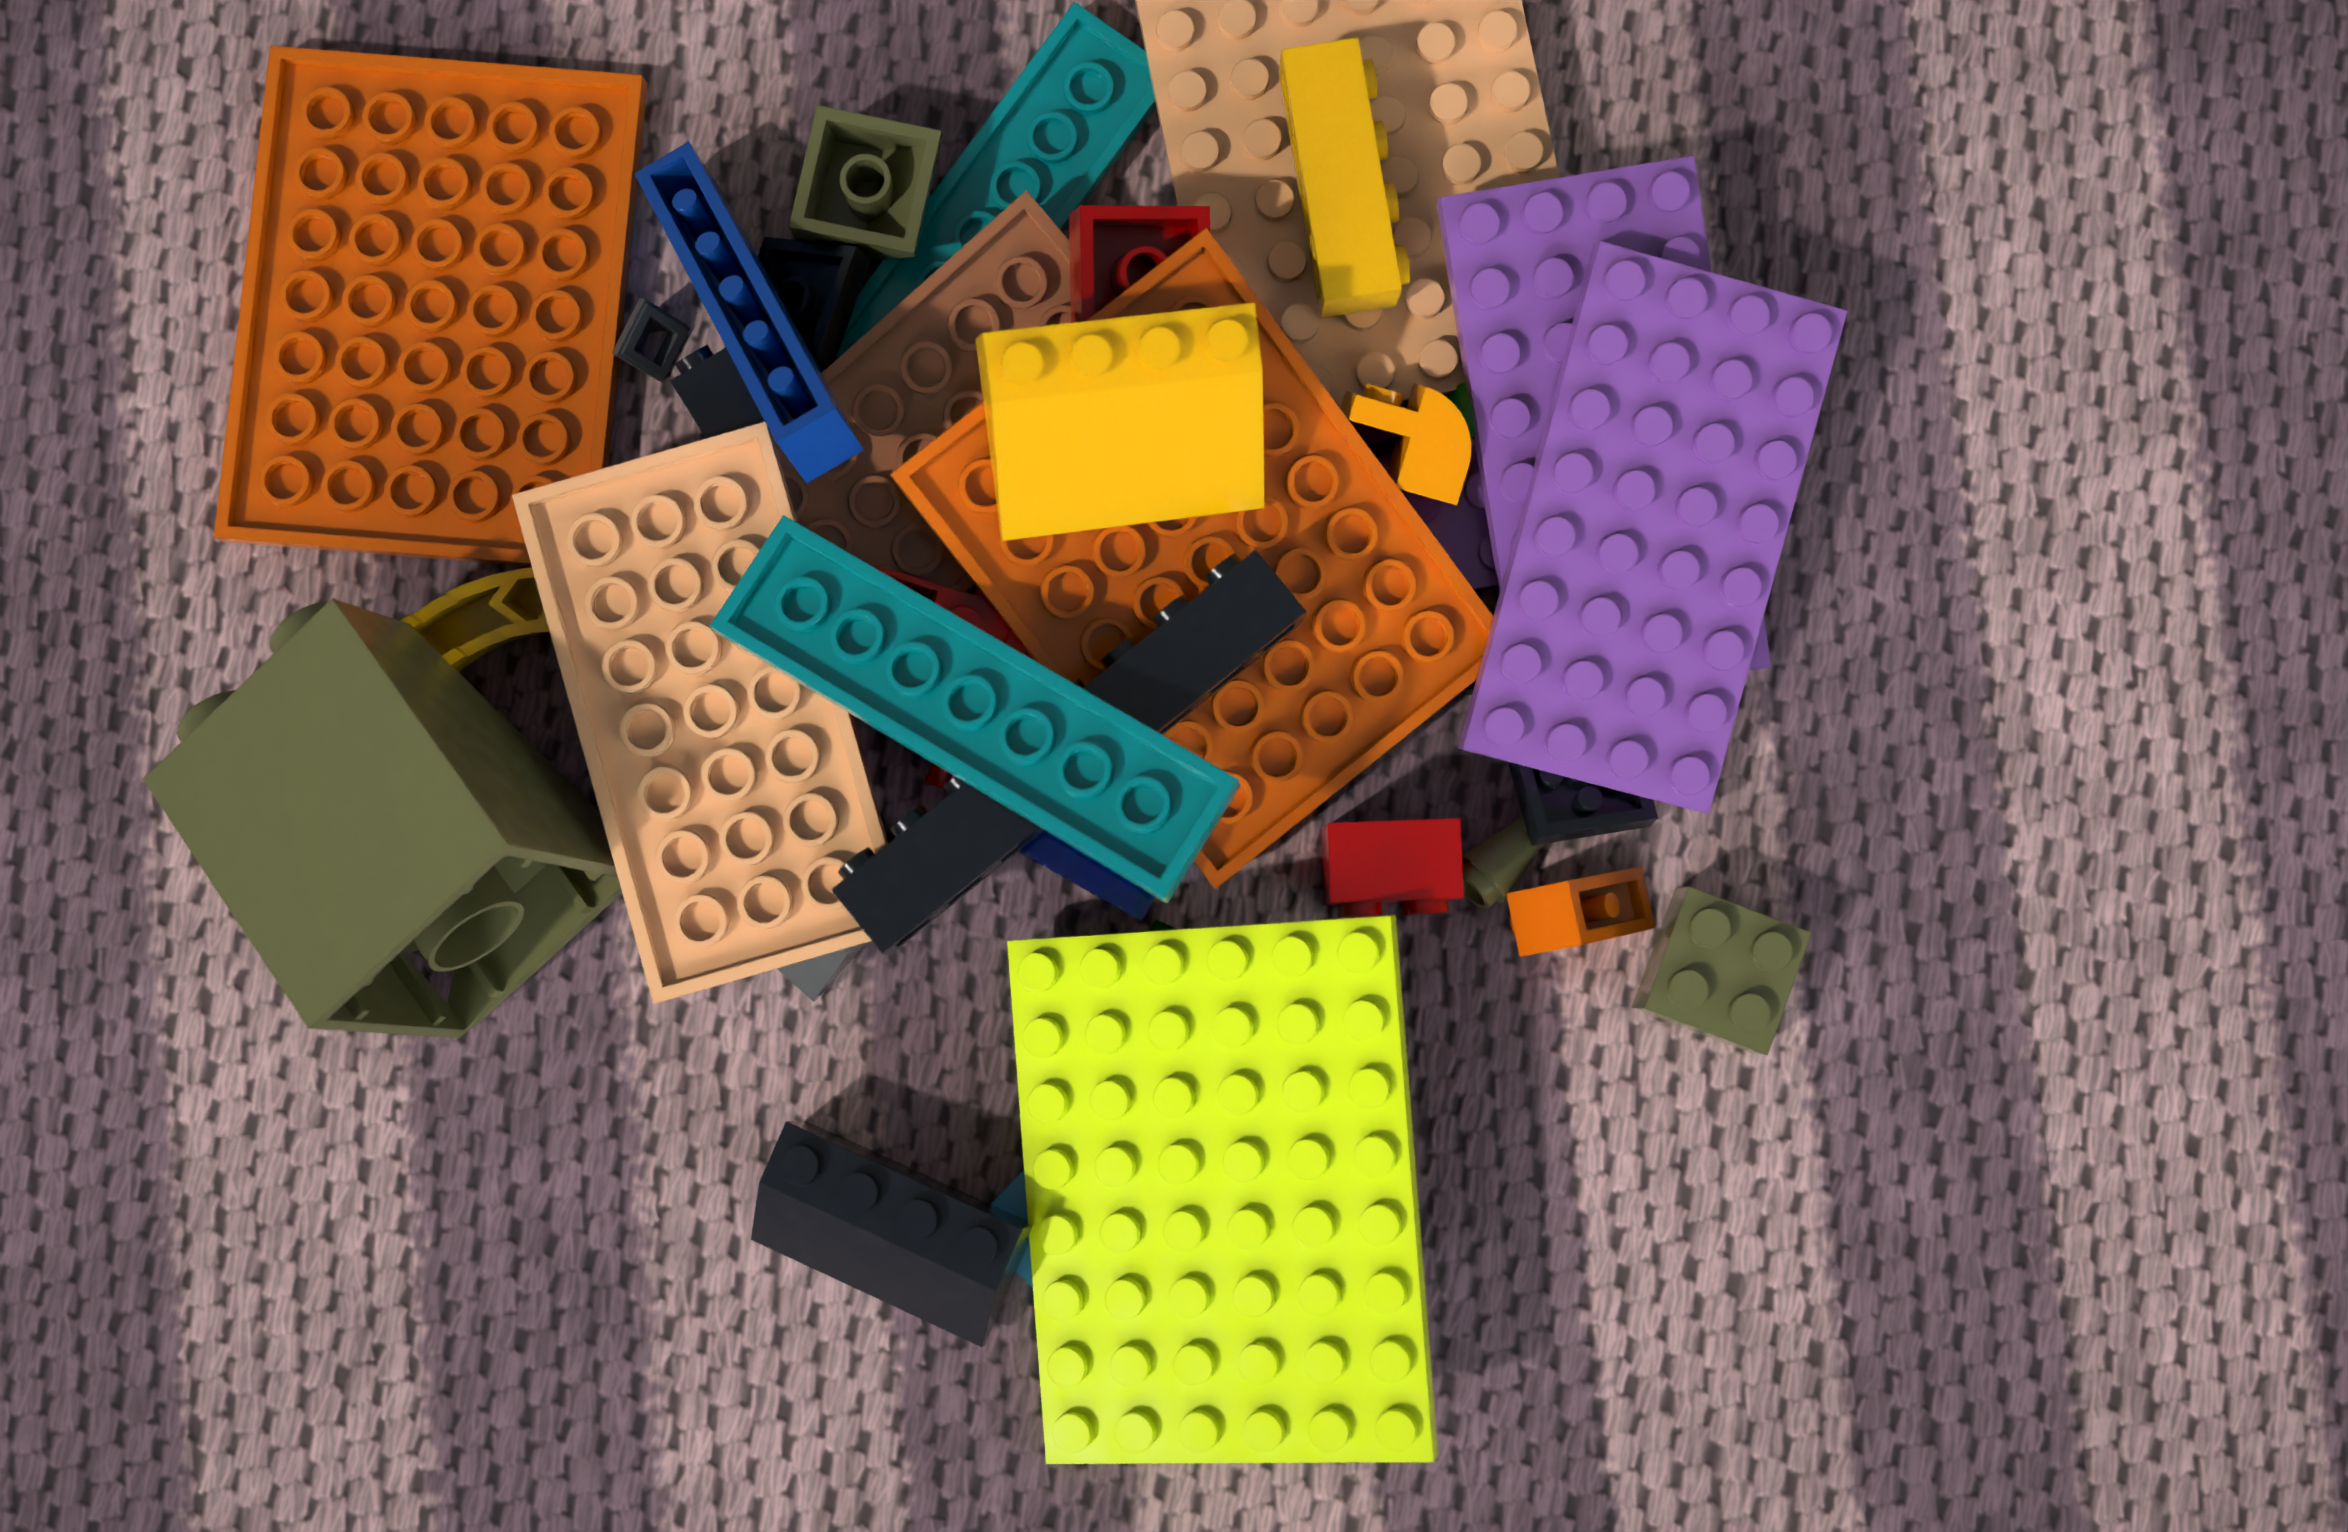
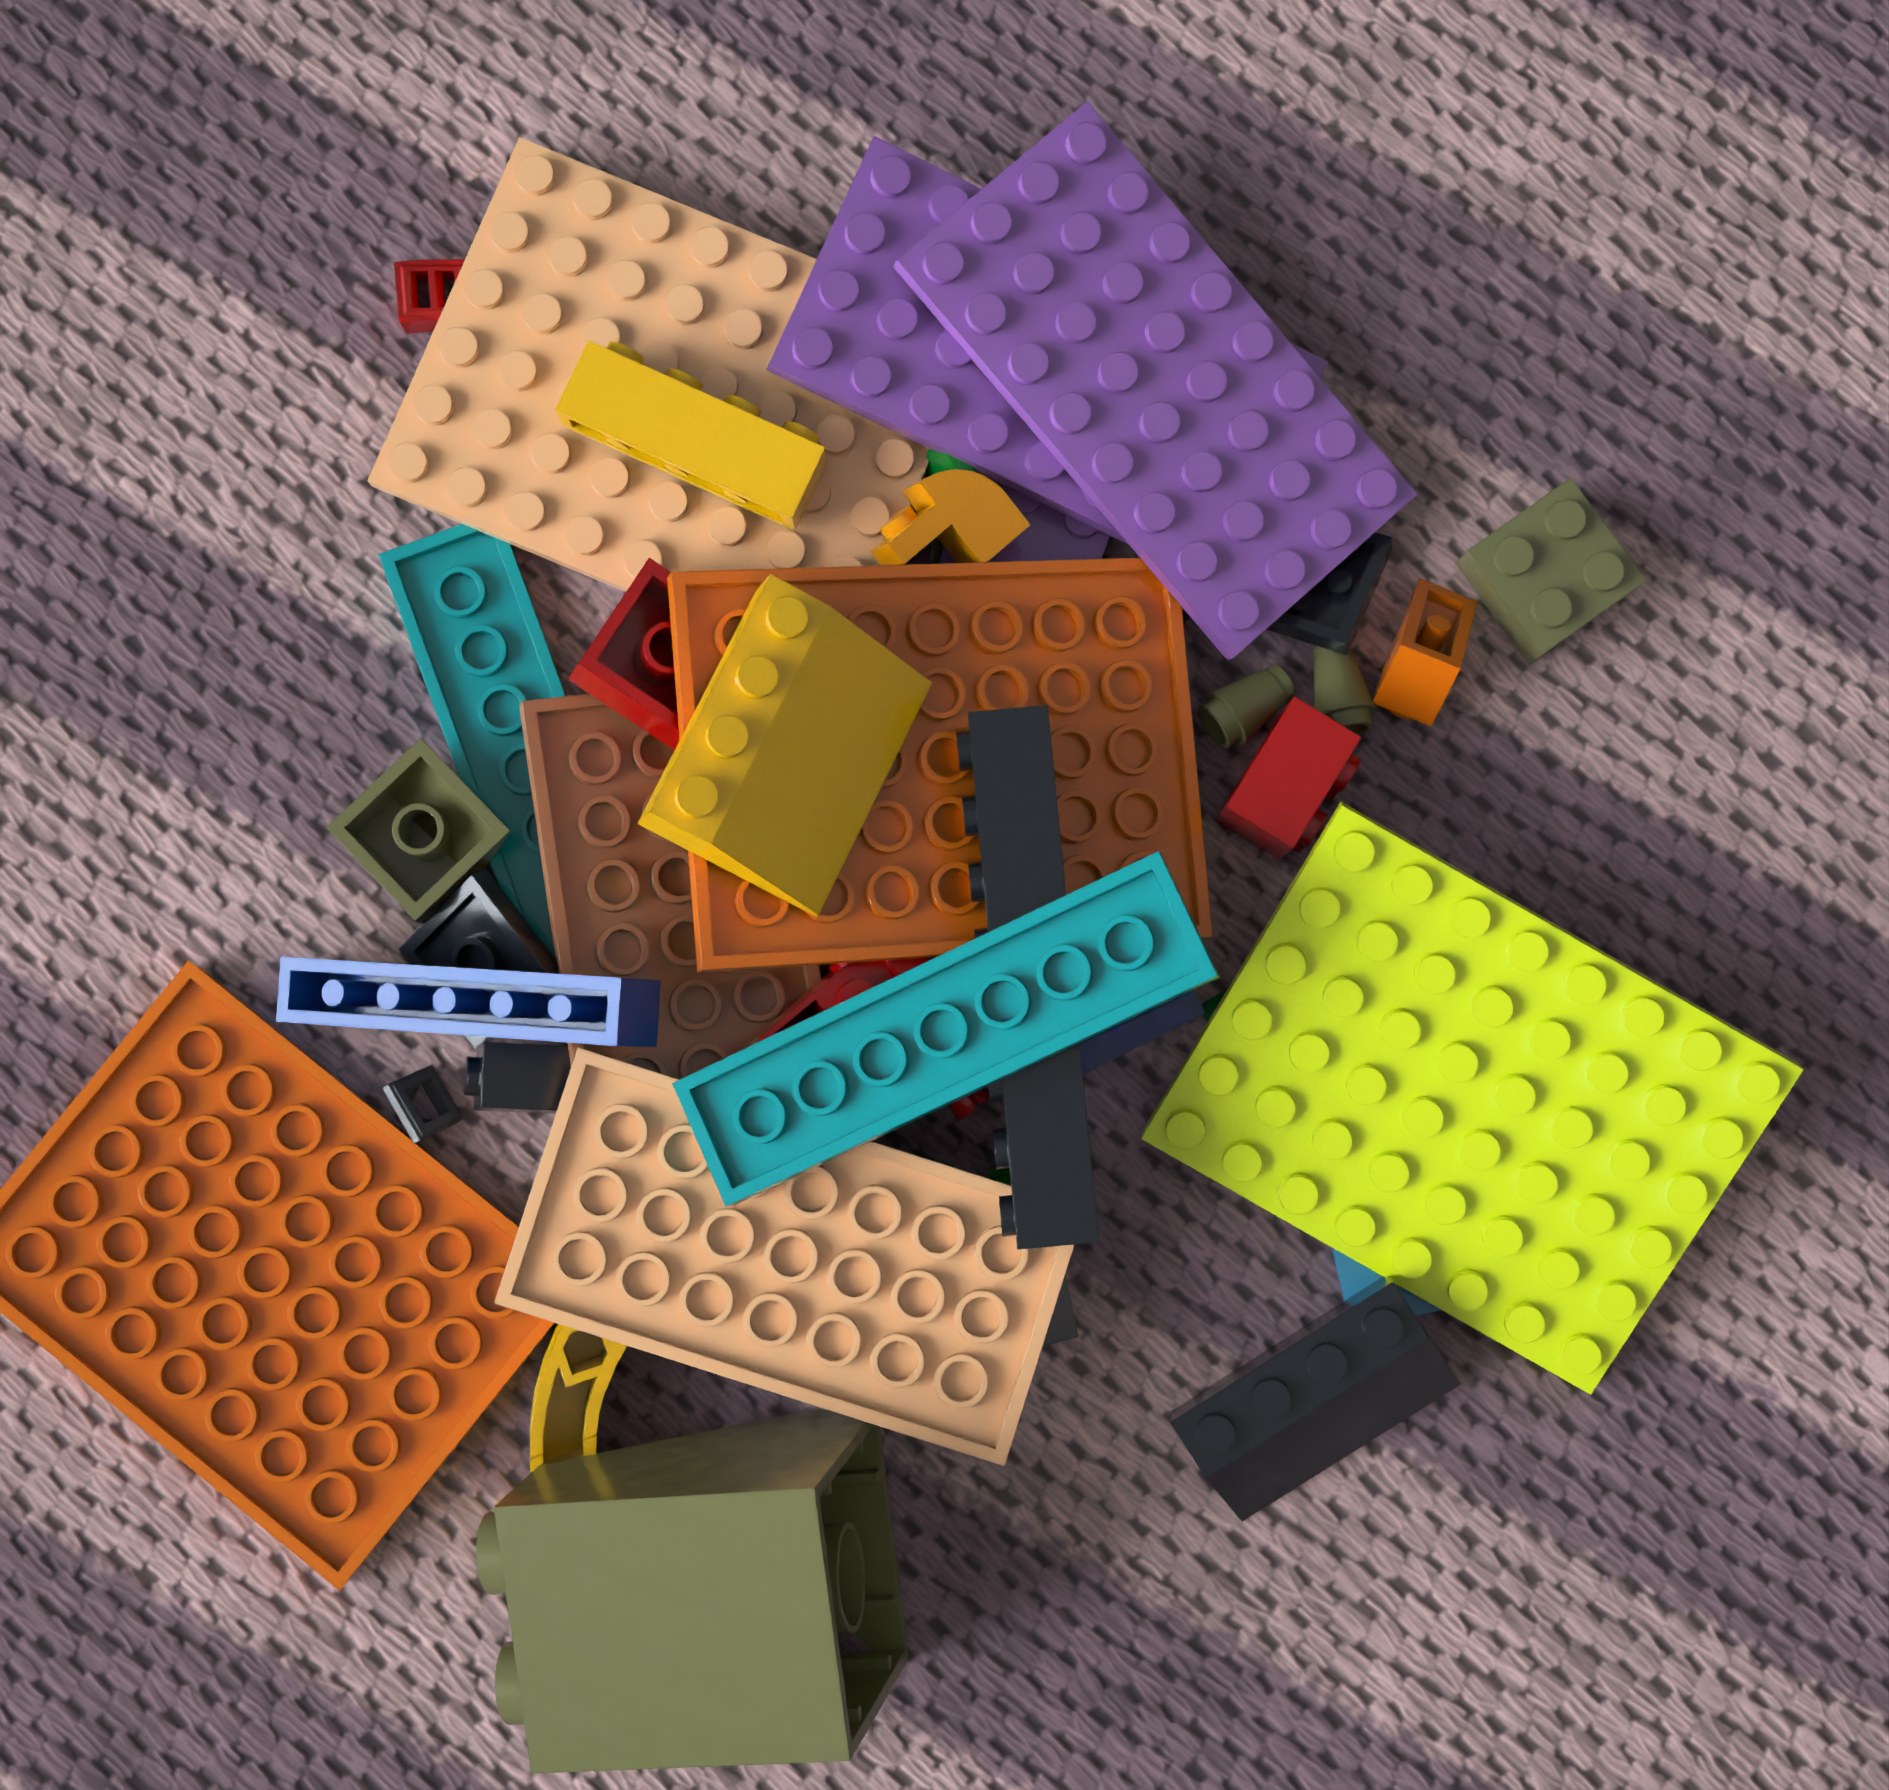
camera: 60 degrees left, 0 degrees up
(1432, 791) = (1243, 707): none -> olive cone

